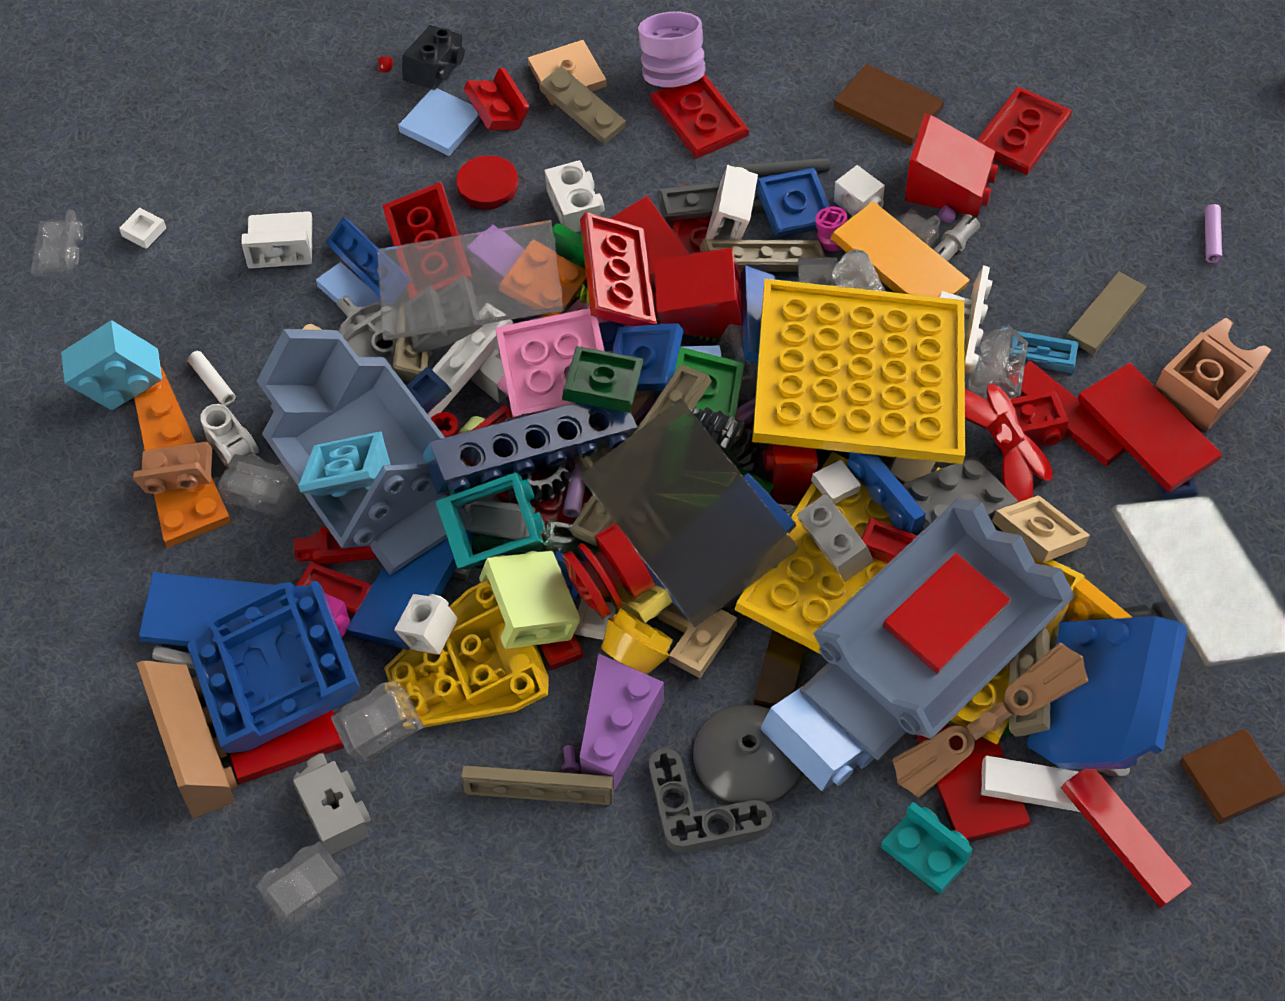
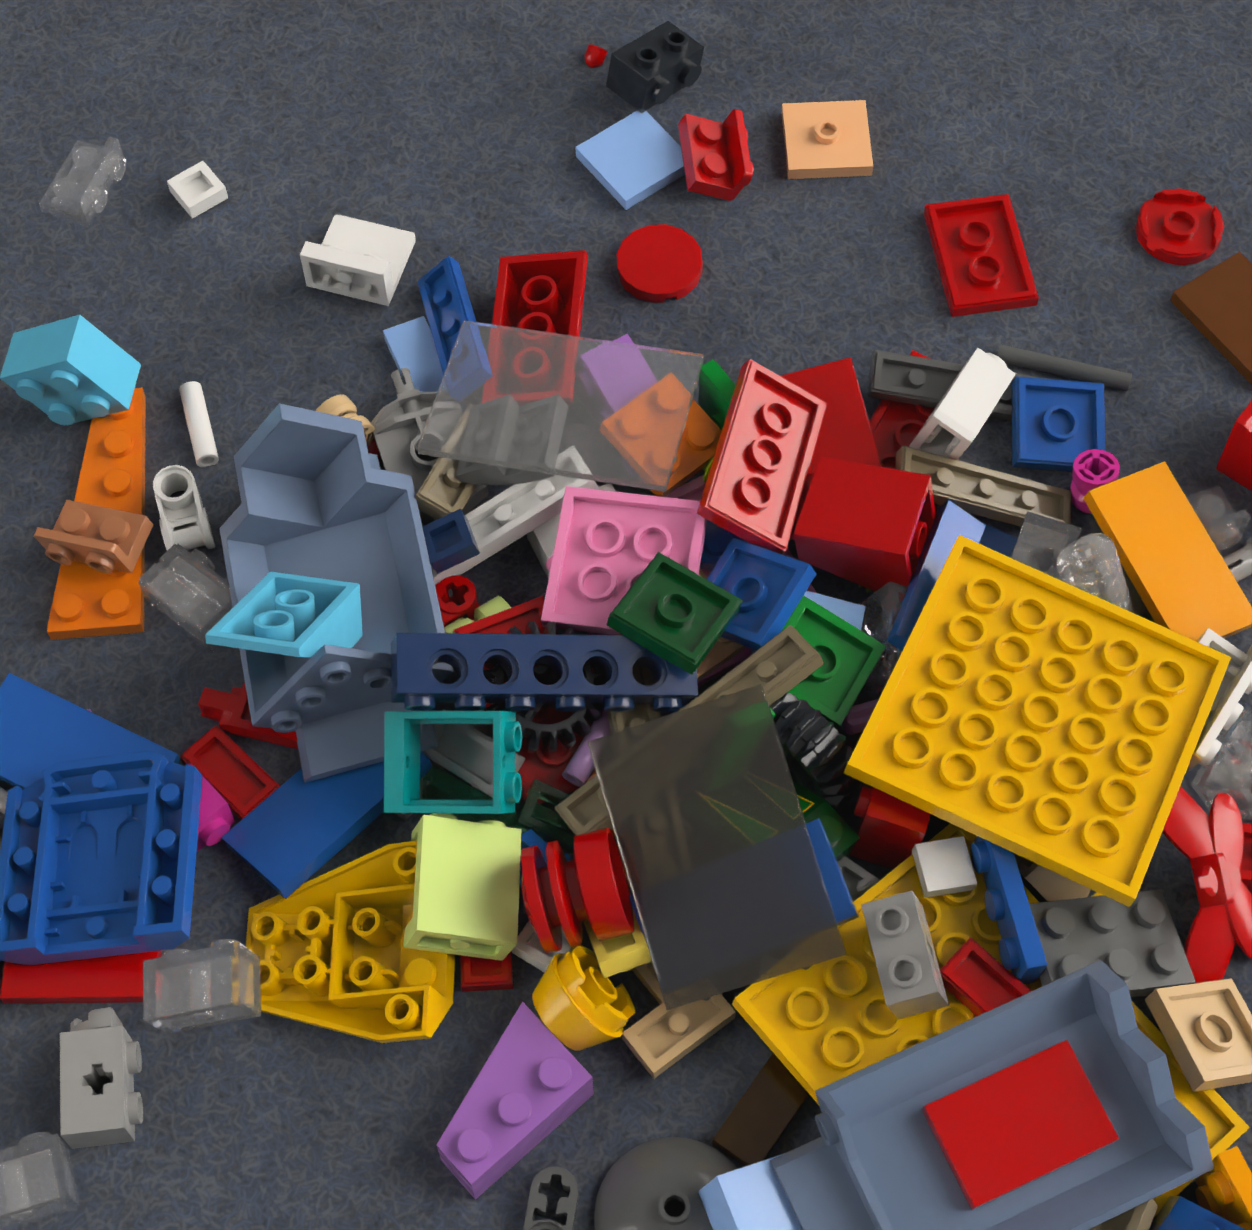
camera: 20 degrees right, 5 degrees up
(426, 623) = (315, 874): white brick -> none
(538, 785) = (374, 1157): dark tan tile -> none
(570, 765) = (432, 1135): medium lavender piece -> none
(572, 193) = (763, 322): white brick -> none
(582, 105) = (826, 194): dark tan plate -> none
(672, 49) = (974, 152): lavender wheel -> none
(820, 68) = (1176, 239): none -> red tile
(858, 190) = (1153, 437): white brick -> none

